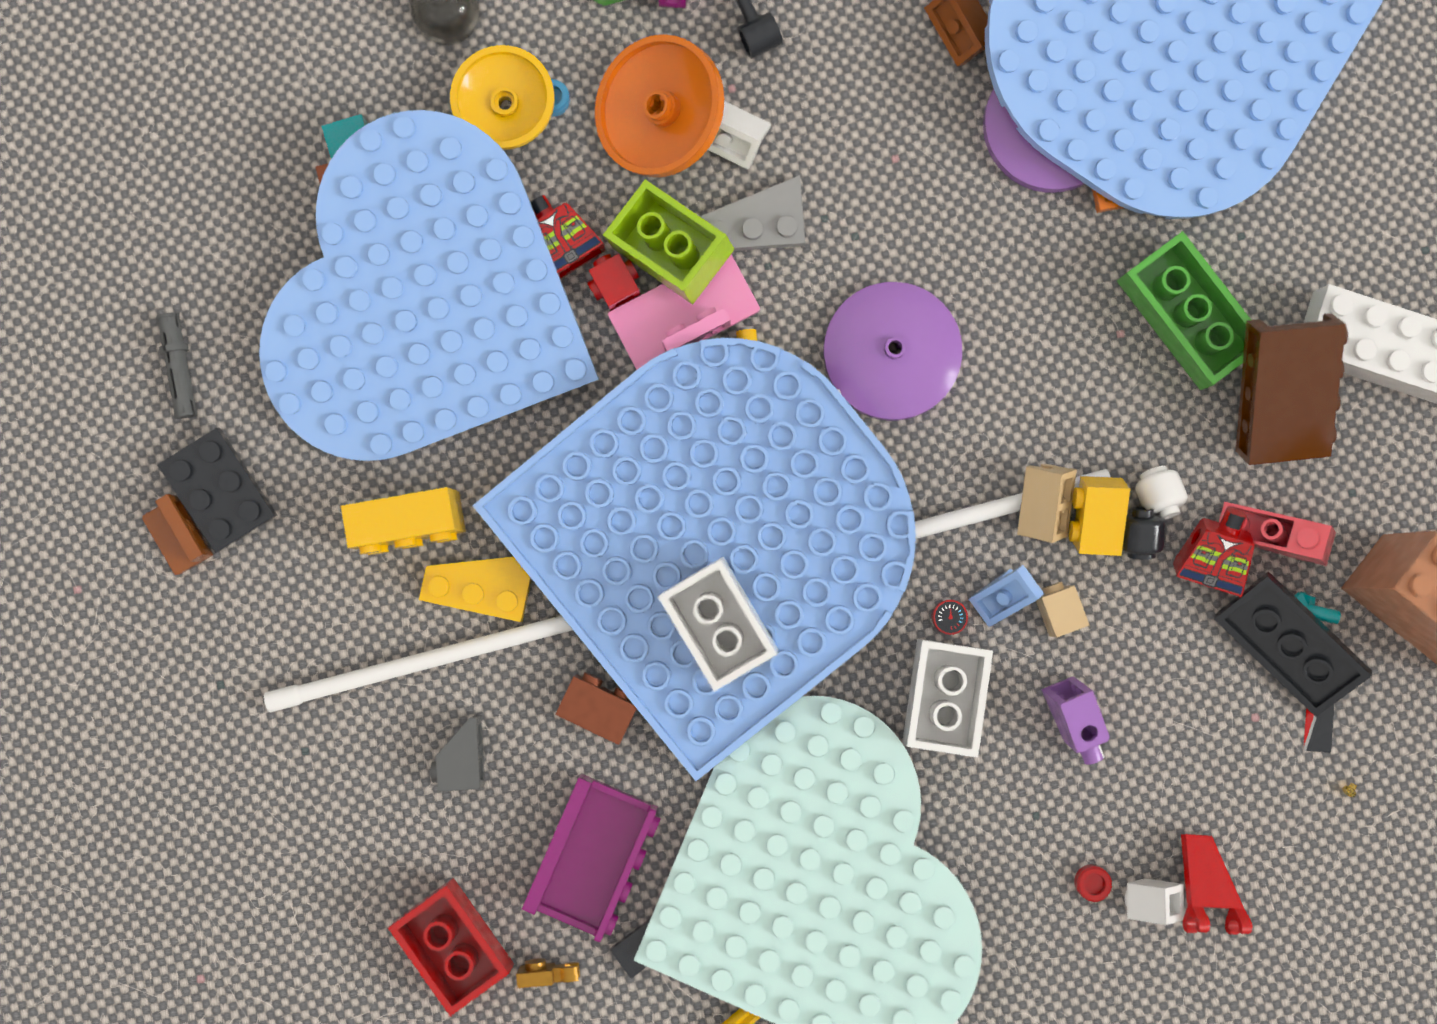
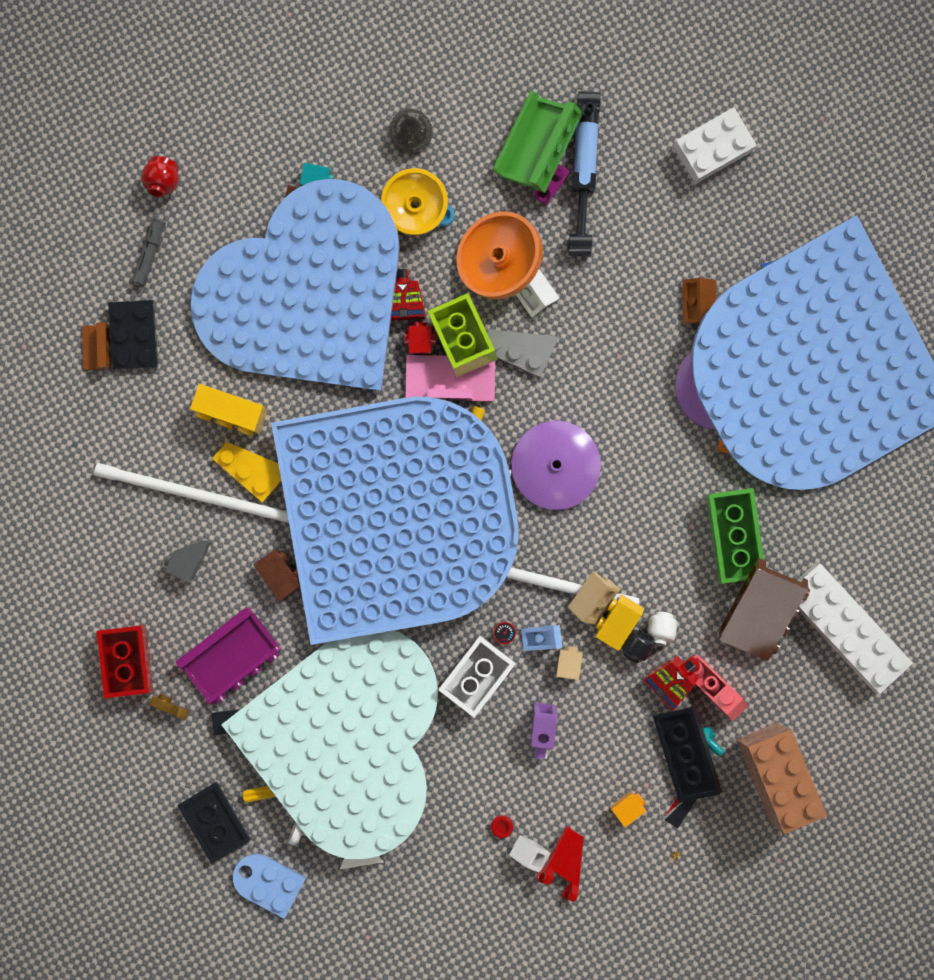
camera: 25 degrees right, 0 degrees up
(134, 252) = (160, 176): none -> red piece
(718, 624) = (371, 563): white brick -> none
(1253, 762) = (629, 808): none -> light orange brick

